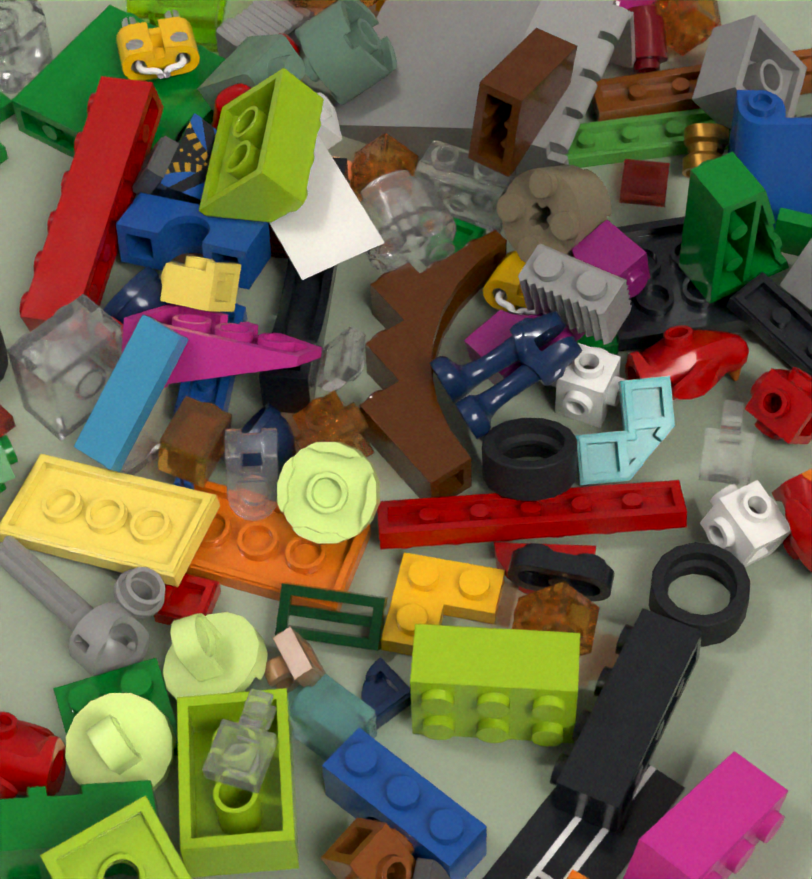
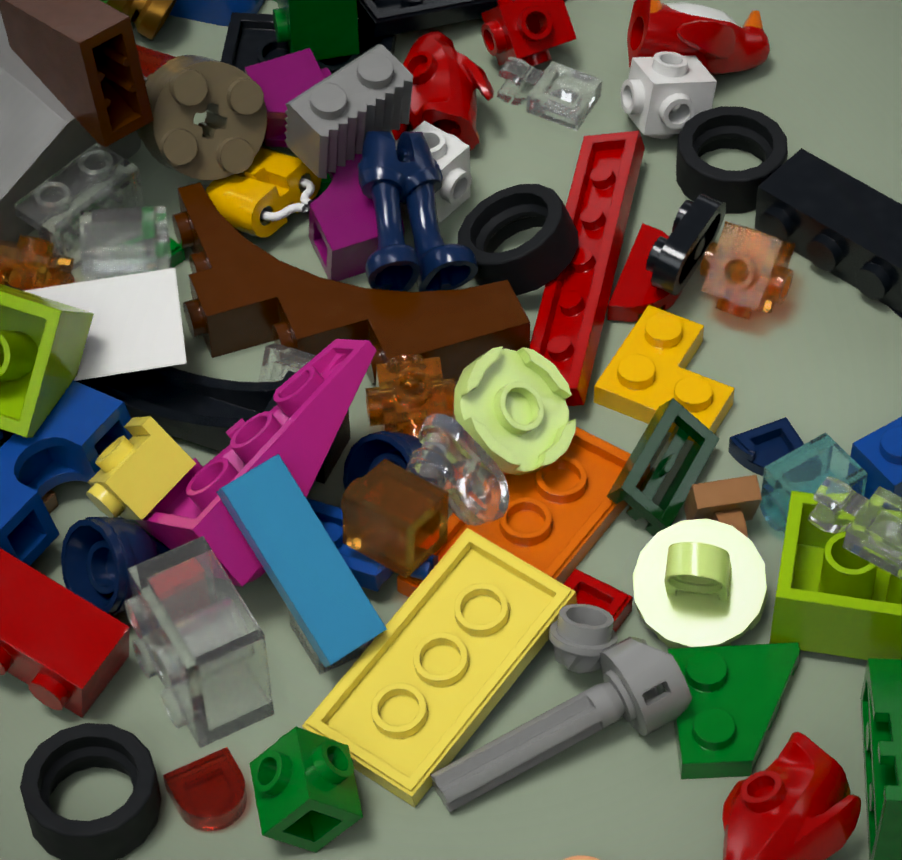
camera: 75 degrees left, 5 degrees down
(120, 741) = (796, 686): yellowish green tile -> none
(494, 684) = (821, 323): lime brick -> none
(646, 422) = (504, 135): tile -> none

